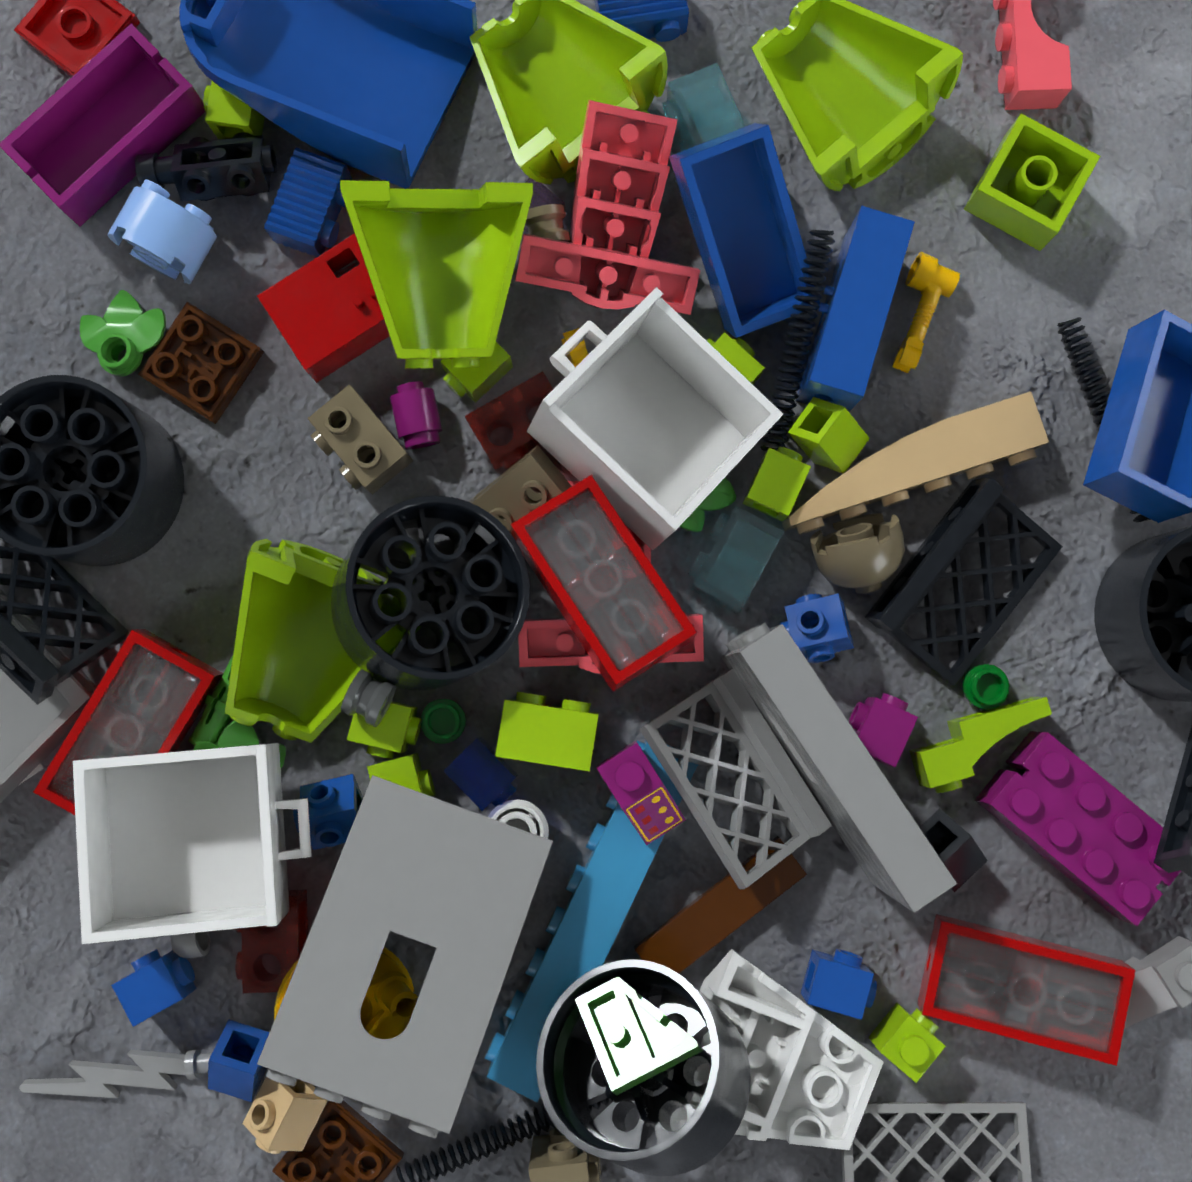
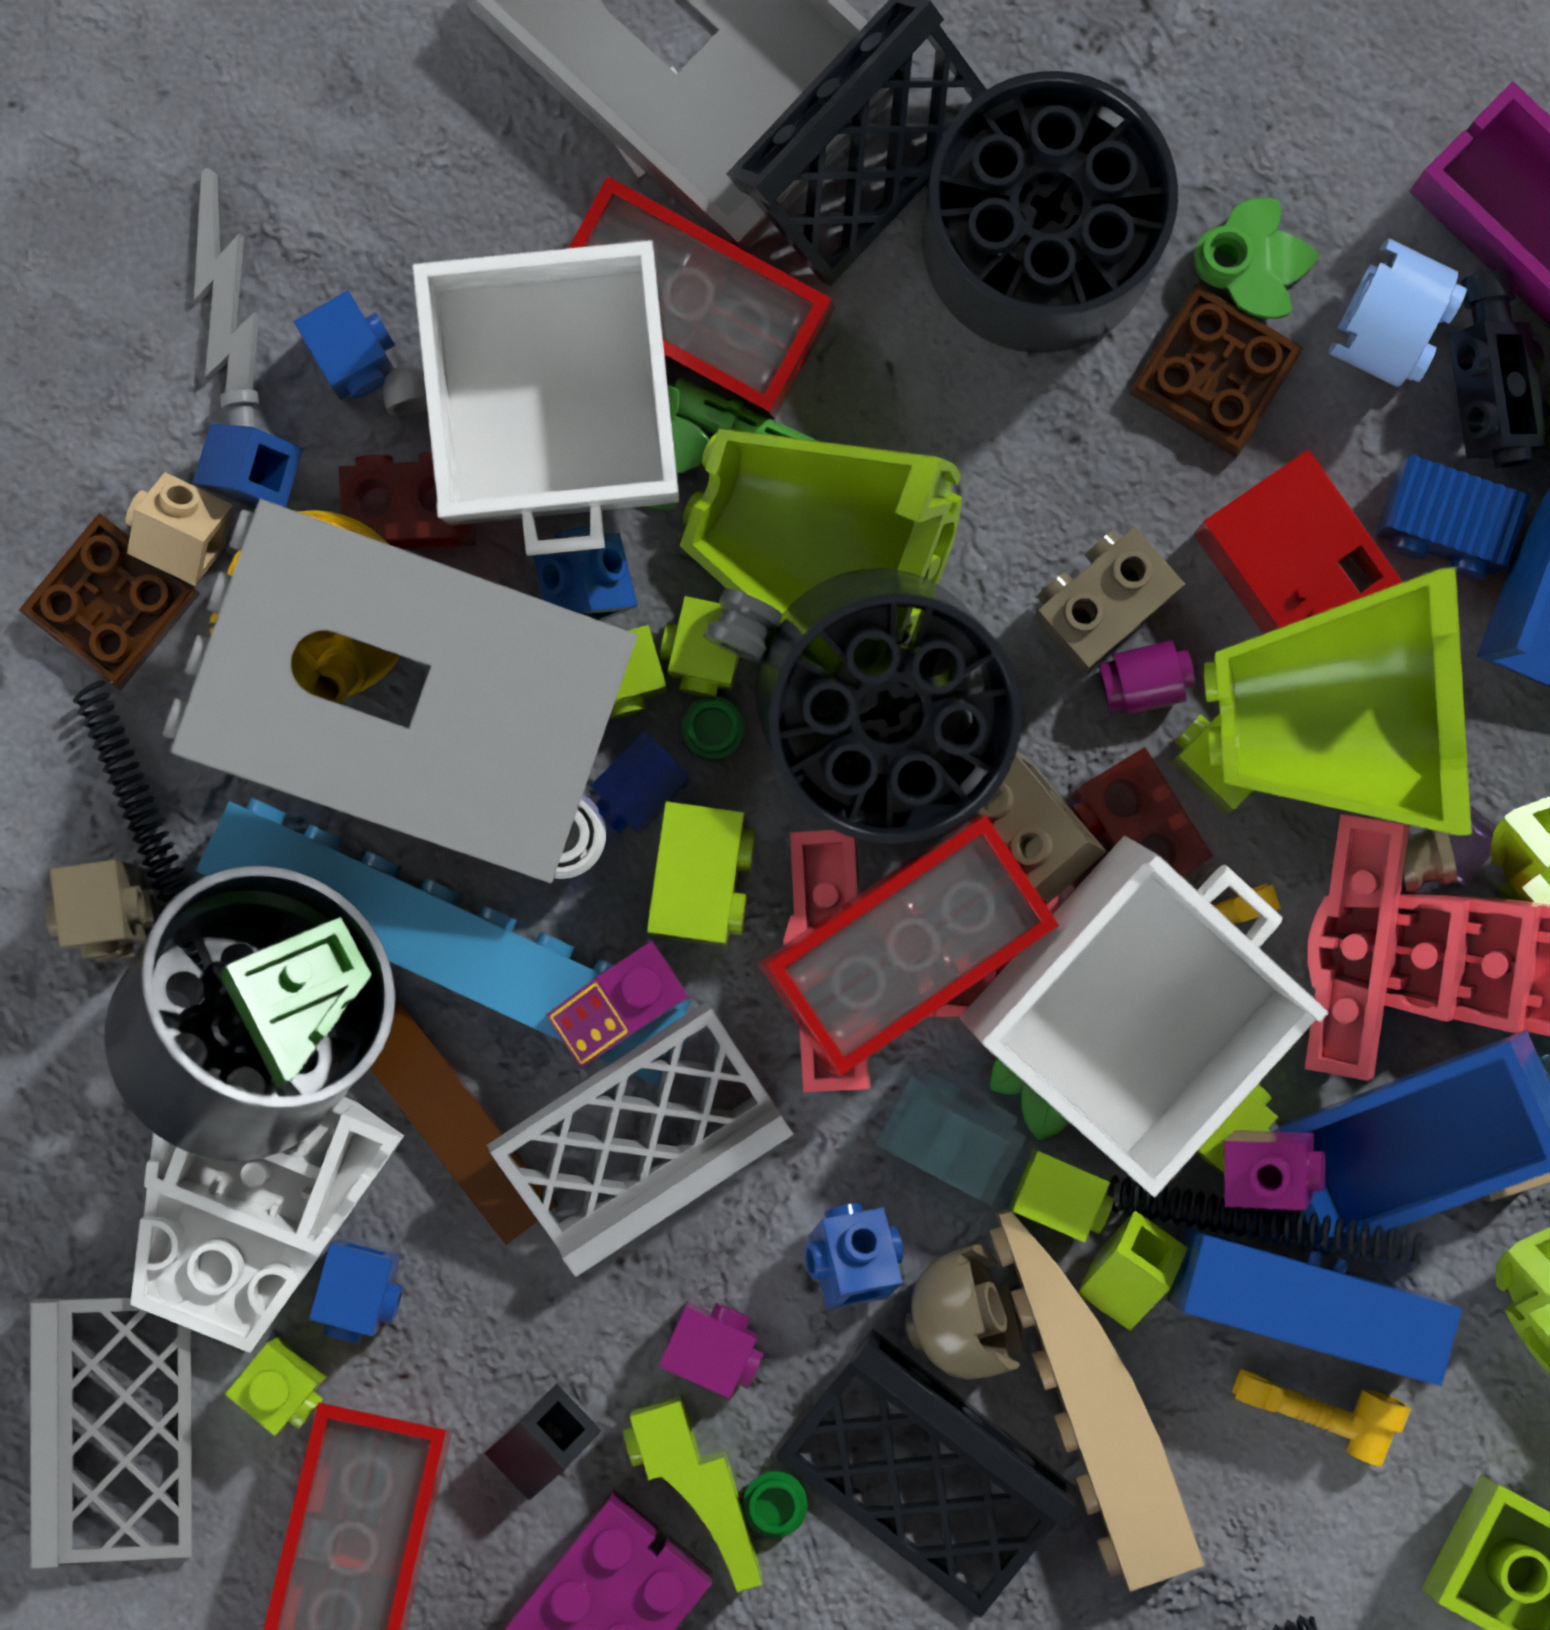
camera: 90 degrees right, 0 degrees up
(763, 333) = (1272, 1169): none -> magenta brick
(837, 767) = (662, 1270): light grey panel -> none

